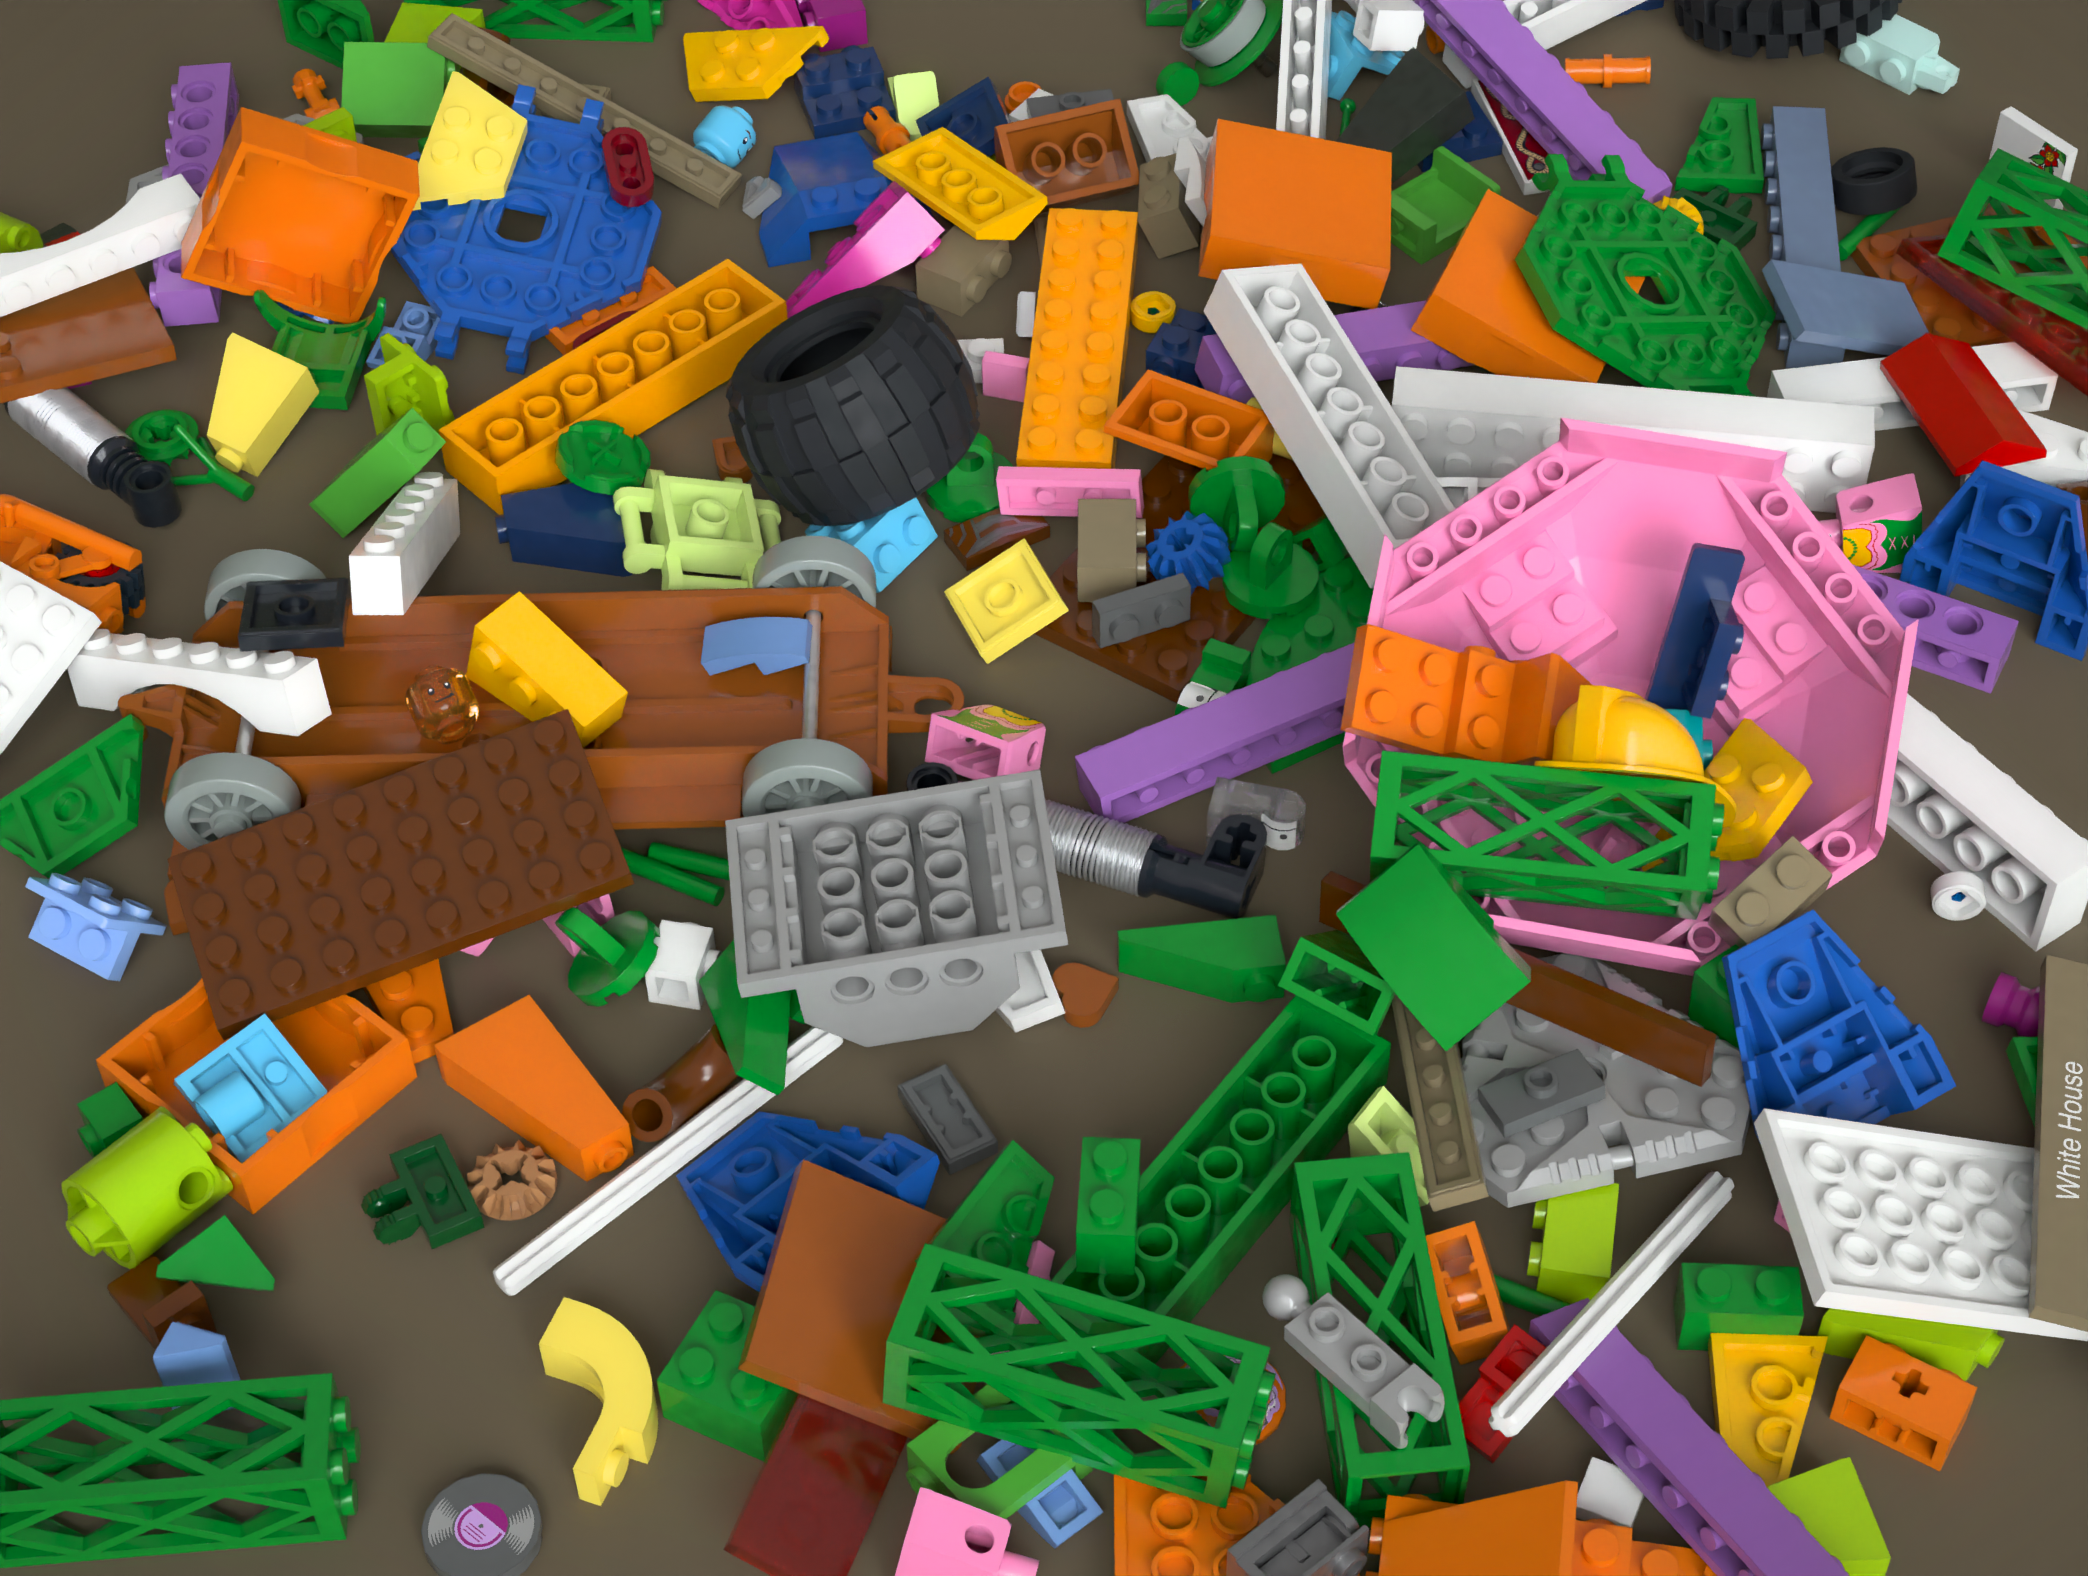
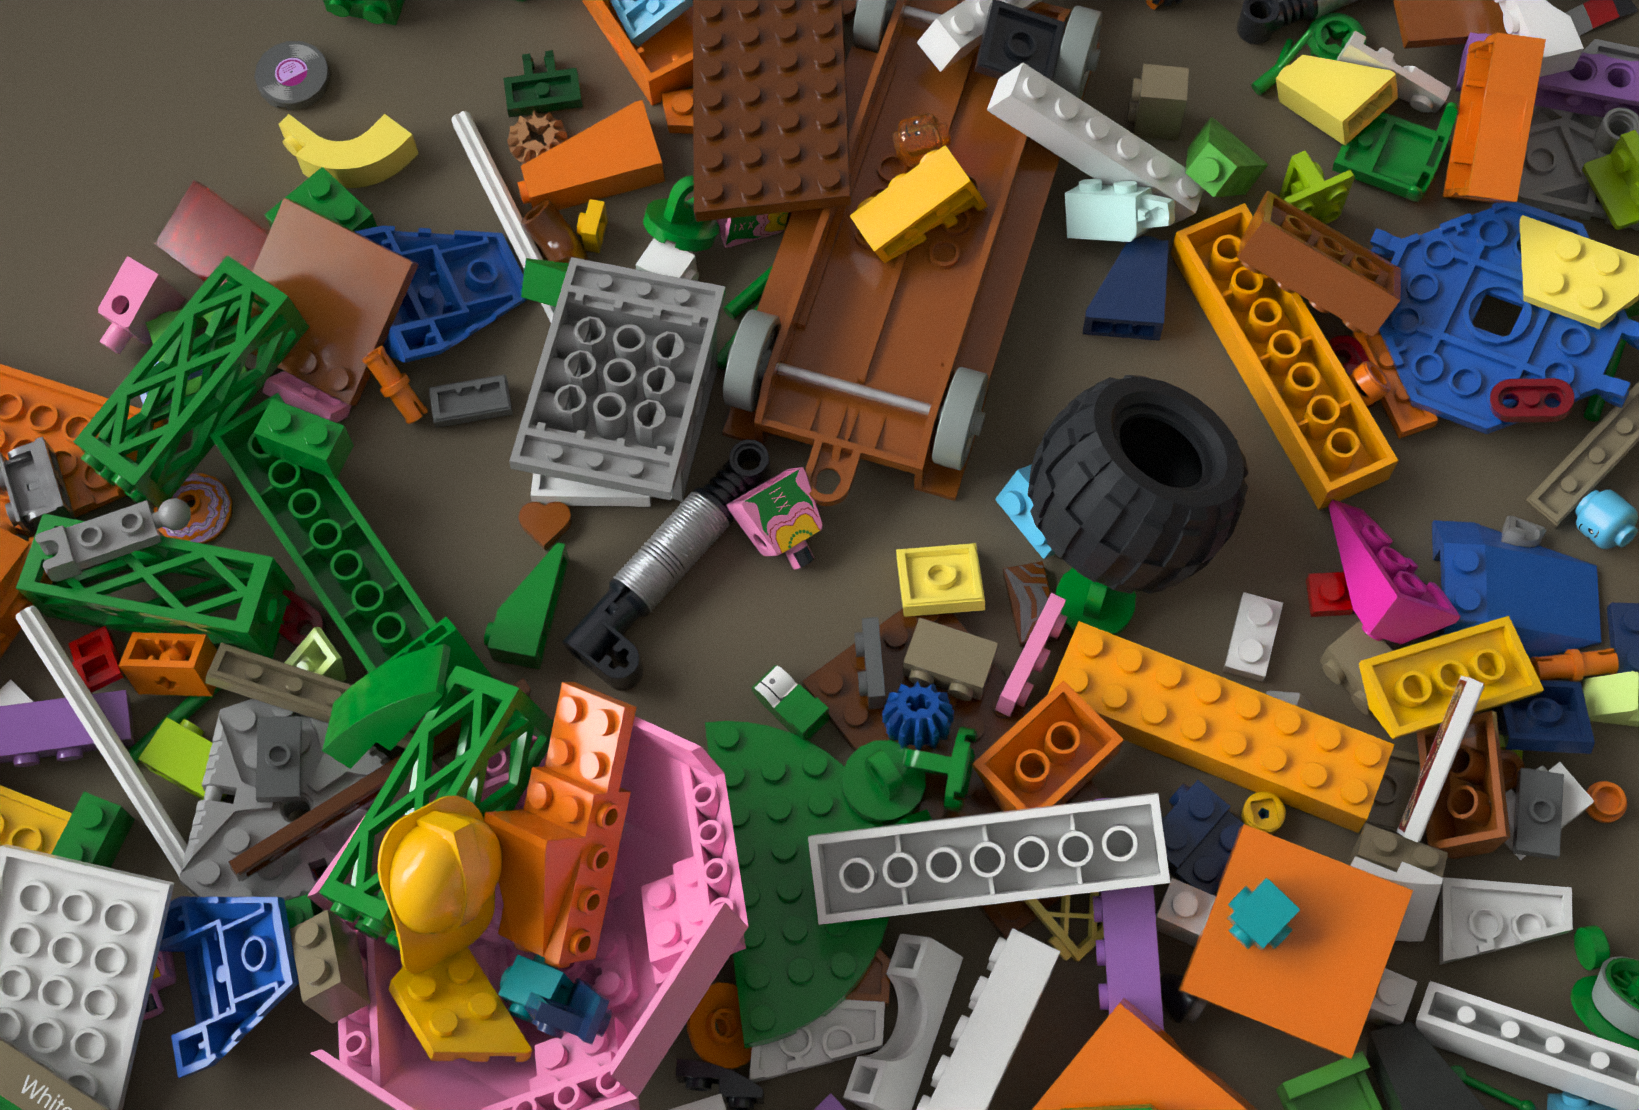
camera: 110 degrees right, 20 degrees up
(207, 368) = (1413, 84): none -> white wing
(304, 526) = (1158, 101): none -> dark tan brick
(415, 327) = (1395, 216): medium blue slope -> none
(479, 536) = (1114, 211): none -> light aqua hinge
(513, 339) = (1320, 265): none -> dark orange slope
(602, 457) = (1176, 312): green tile -> none
(632, 302) = (1371, 381): none -> orange tile
(638, 1059) = (593, 225): none -> yellow plate
(696, 529) = (1072, 359): yellowish green brick -> none
(766, 641) = (911, 361): medium blue slope -> none
(945, 1195) = (395, 385): none -> orange pin
(1000, 1216) = (333, 375): green wing -> none
(1004, 376) = (1214, 655): bright pink tile -> none
(1055, 163) = (1440, 758): none -> white tile
(1217, 739) = (724, 701): medium lavender brick -> none
(1276, 808) = (659, 685): clear leg -> none
(1298, 201) = (1261, 915): none -> teal brick

